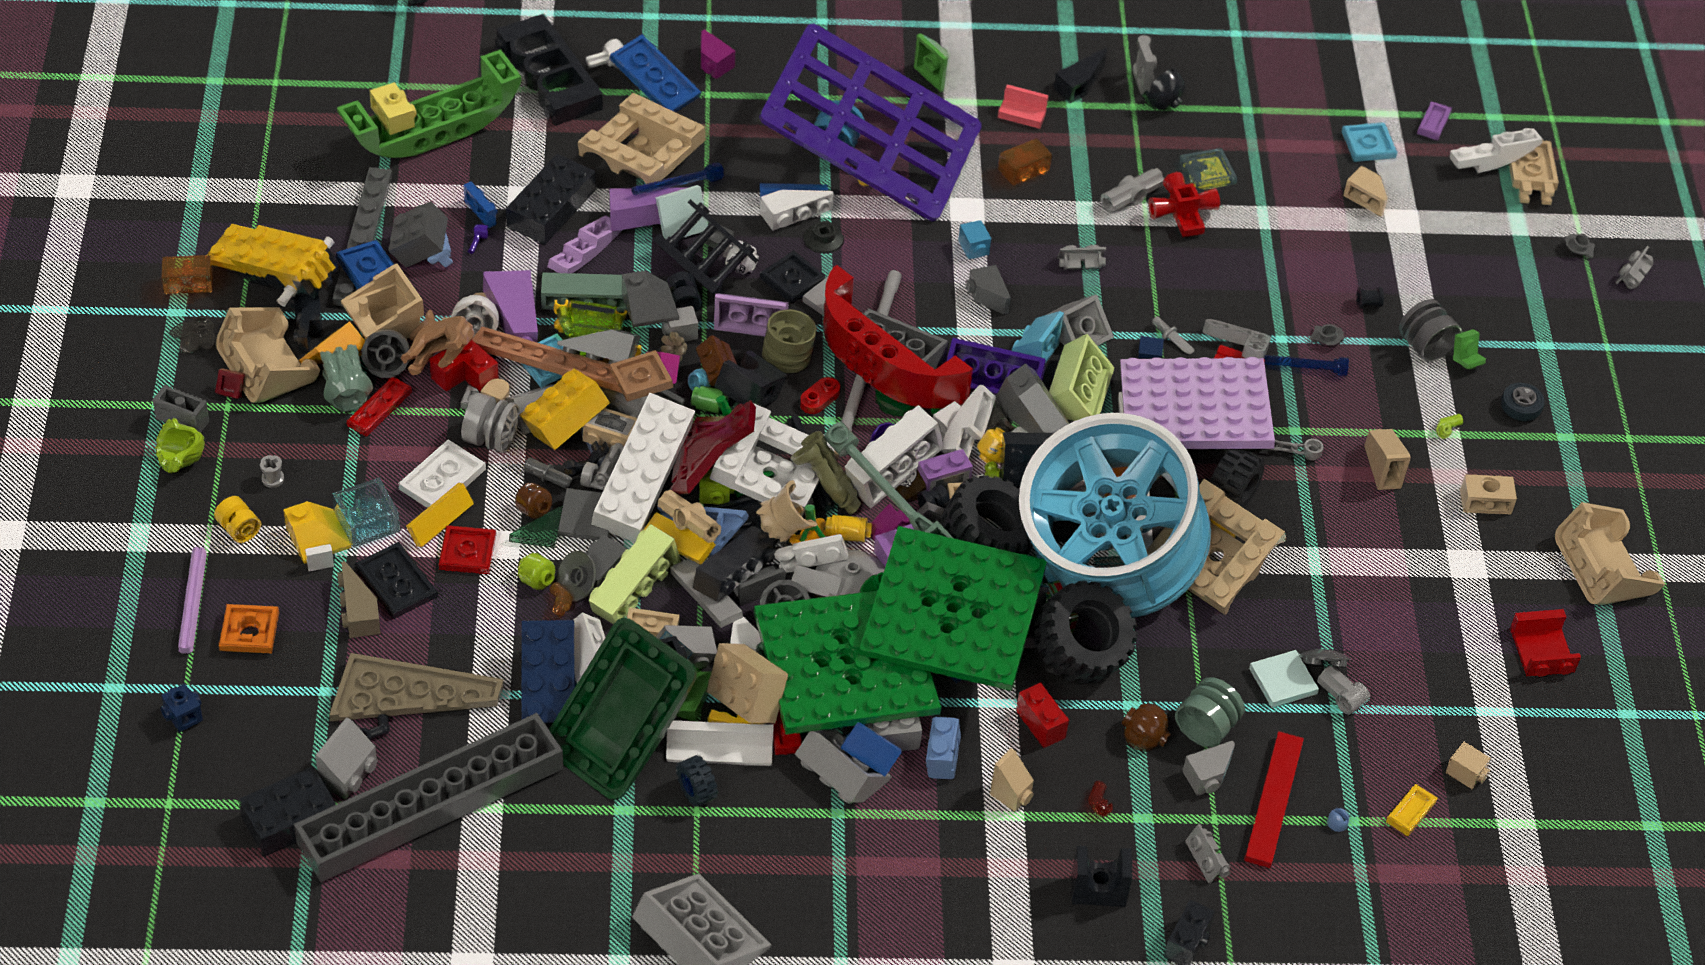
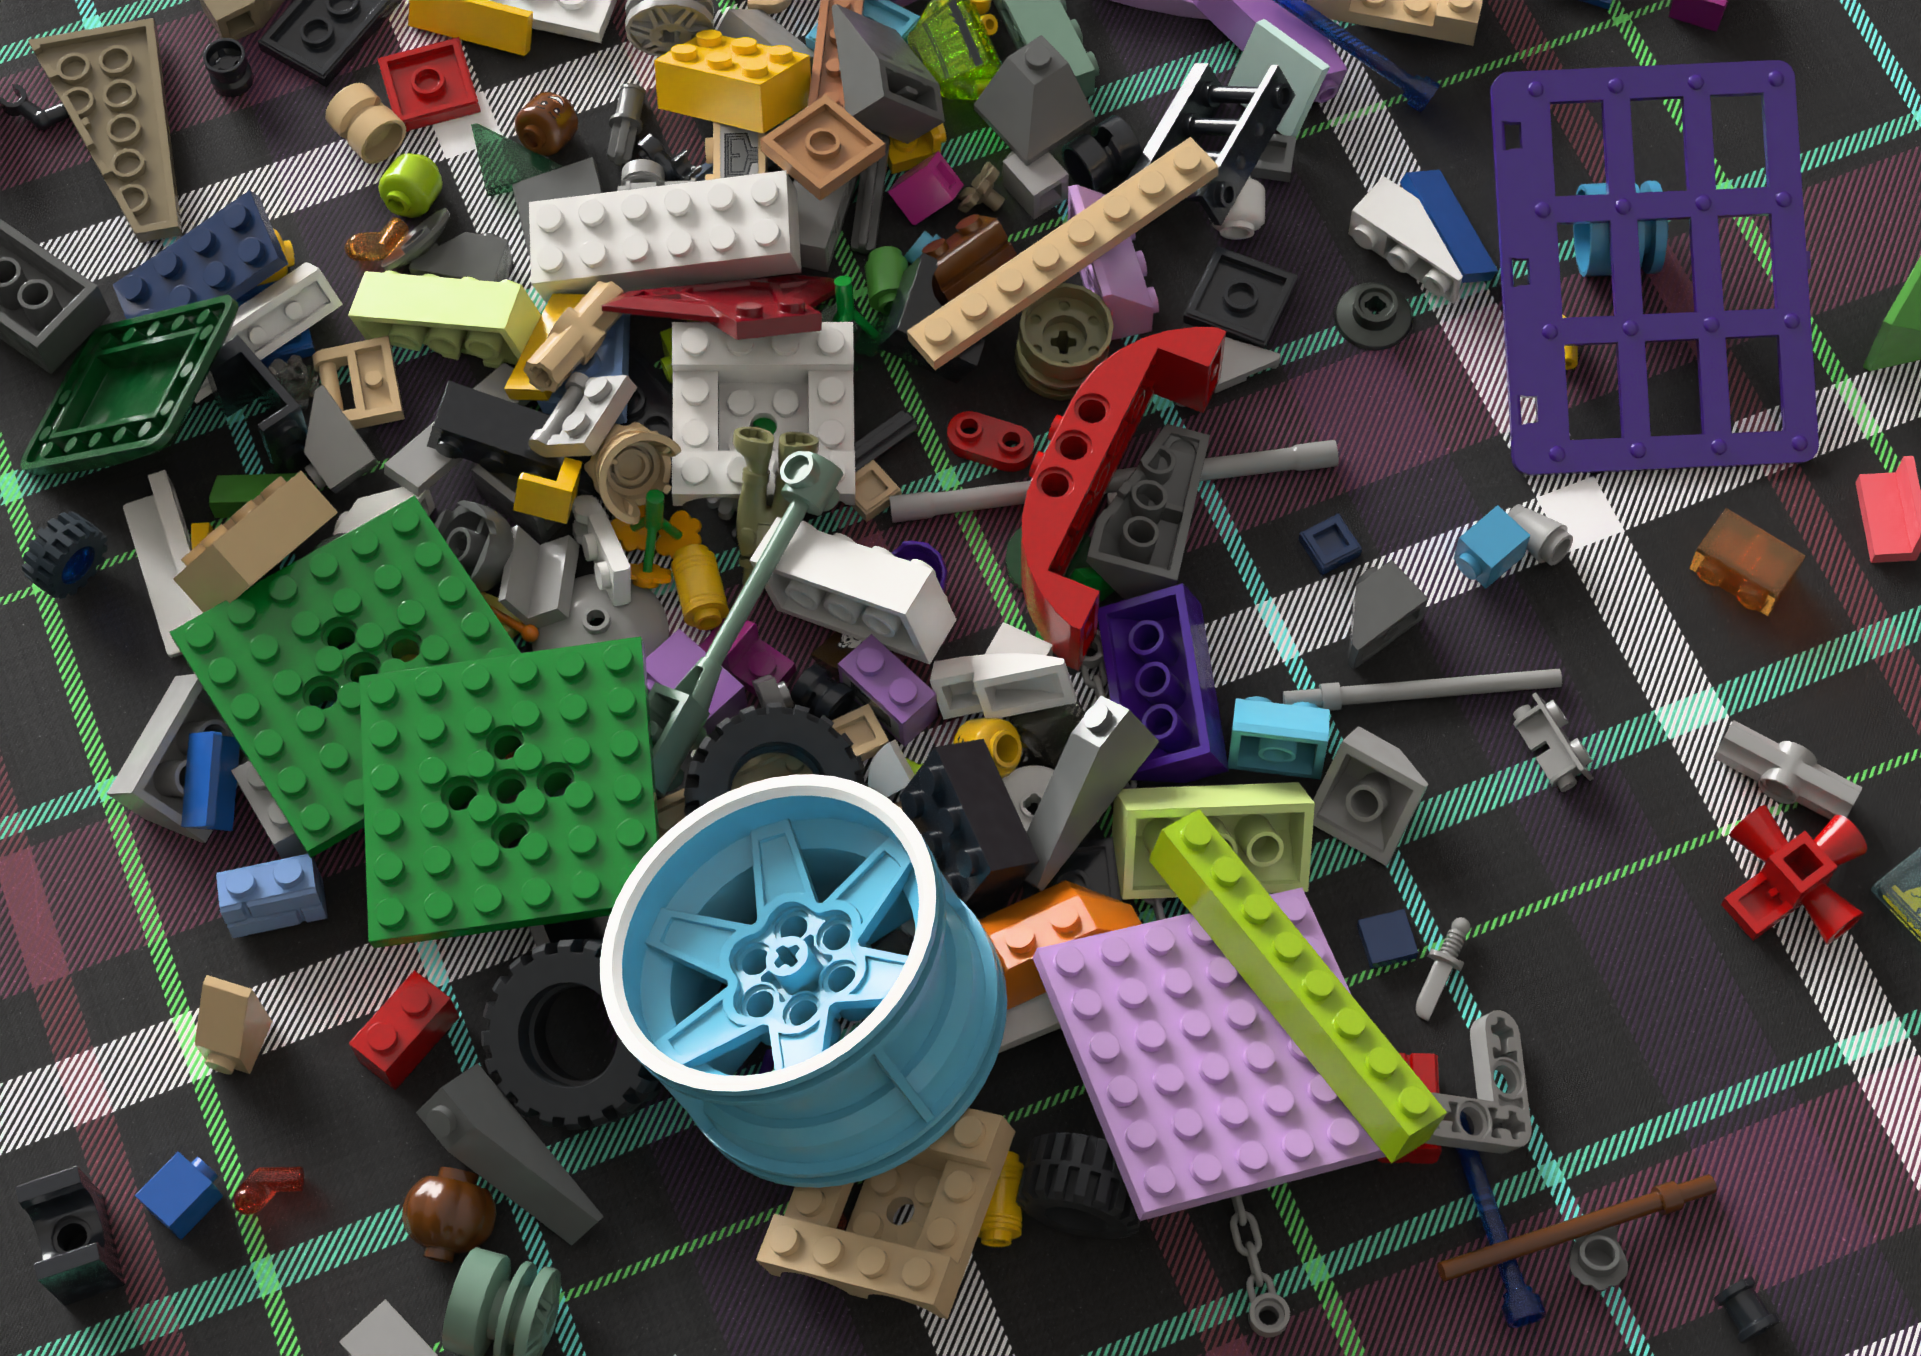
camera: 75 degrees right, 15 degrees up
(406, 629) = (228, 67): none -> black wheel
(484, 577) = (365, 123): none -> tan wheel
(751, 517) = (583, 416): none -> light grey plate
(755, 311) = (1062, 253): none -> tan plate
(778, 554) = (548, 497): none -> yellow panel
(941, 296) = (1330, 544): none -> dark blue tile
(977, 215) = (1548, 537): none -> light grey cone
(1023, 319) = (1333, 696): none -> light grey bar
(1092, 831) = (180, 1194): none -> blue brick
(1115, 692) = (499, 1145): none -> dark grey wedge
(1180, 362) = (1297, 986): none -> lime brick
(1310, 305) = (1663, 1199): none -> reddish brown bar

